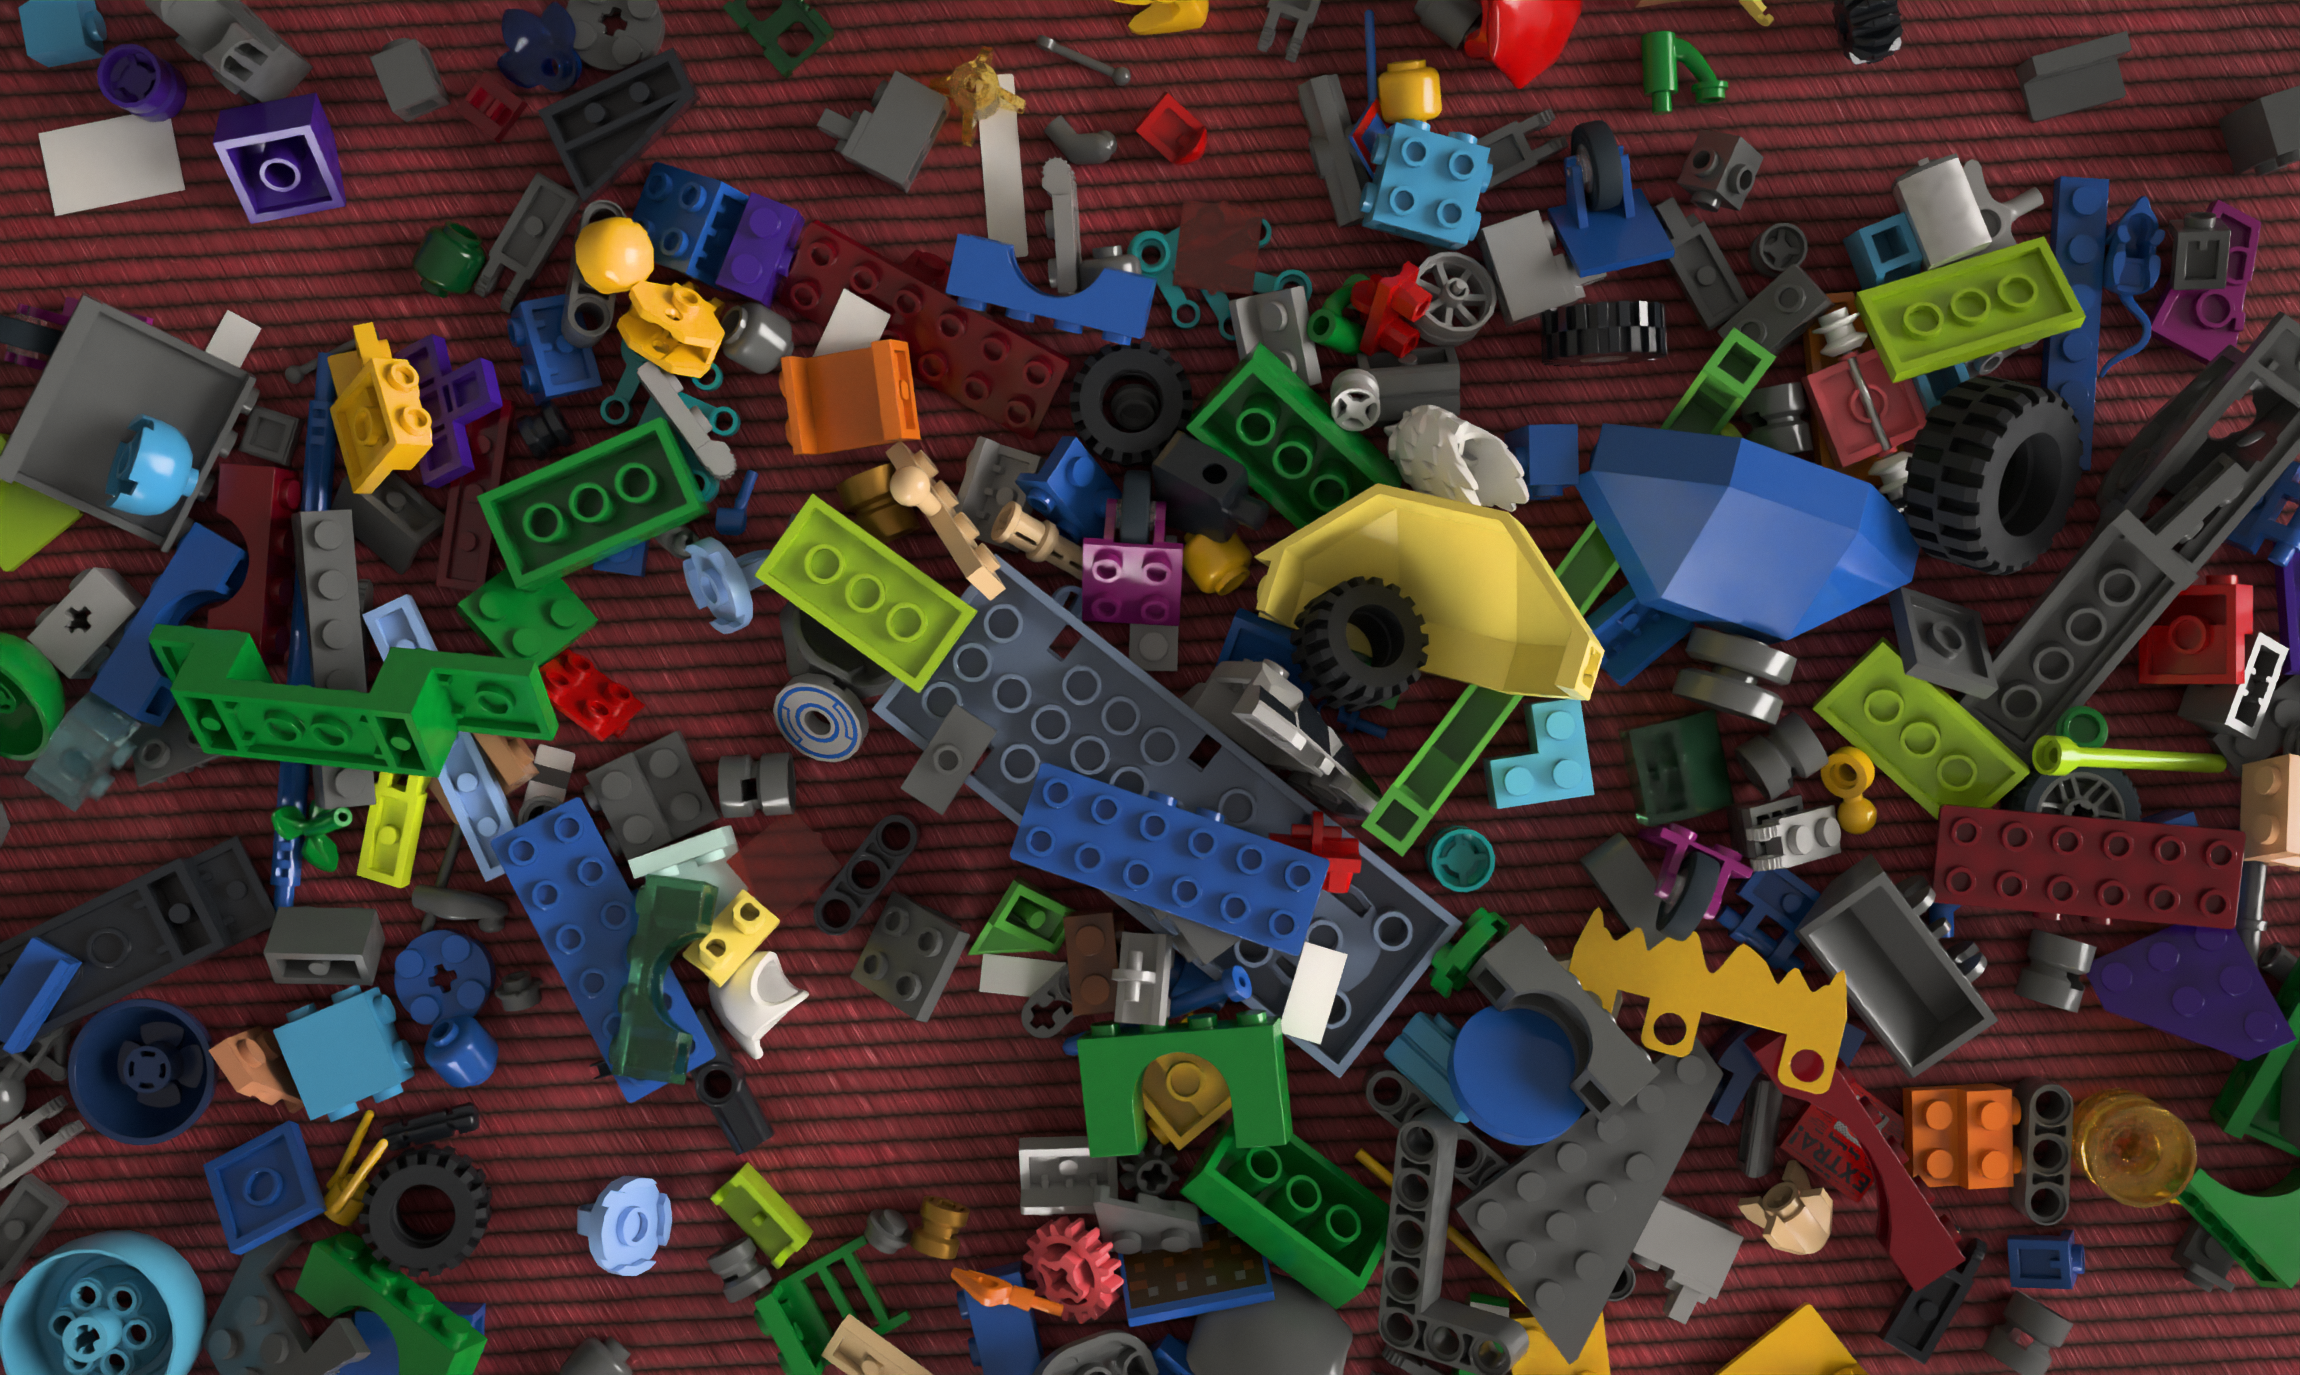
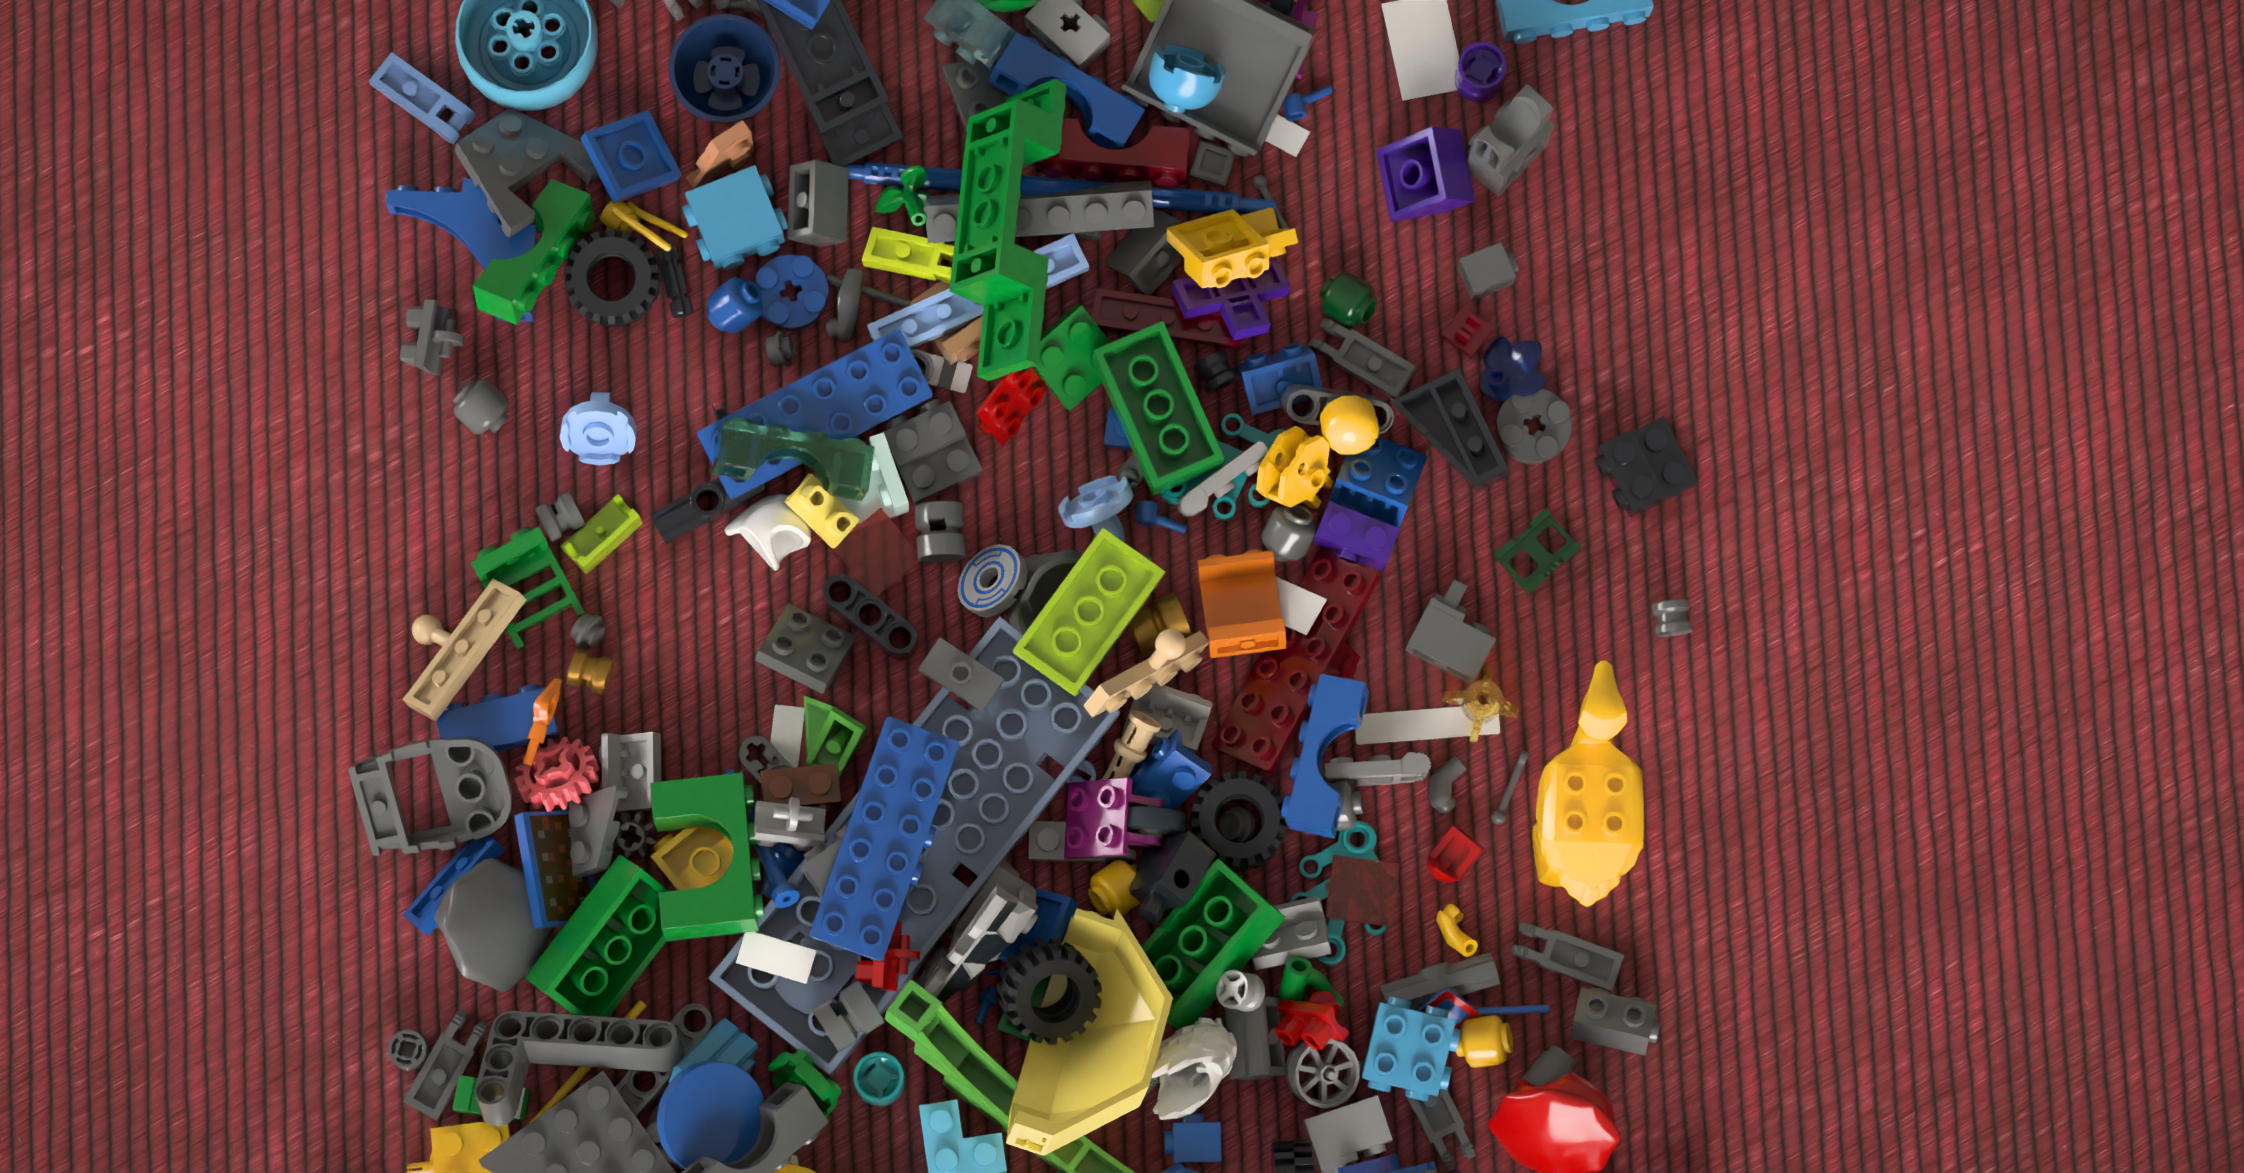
camera: 85 degrees right, 10 degrees down
(193, 327) = (1295, 103): none -> blue hand
(1272, 134) = (1452, 934): none -> yellow arm
(1397, 905) = (848, 1016): none -> dark grey wheel

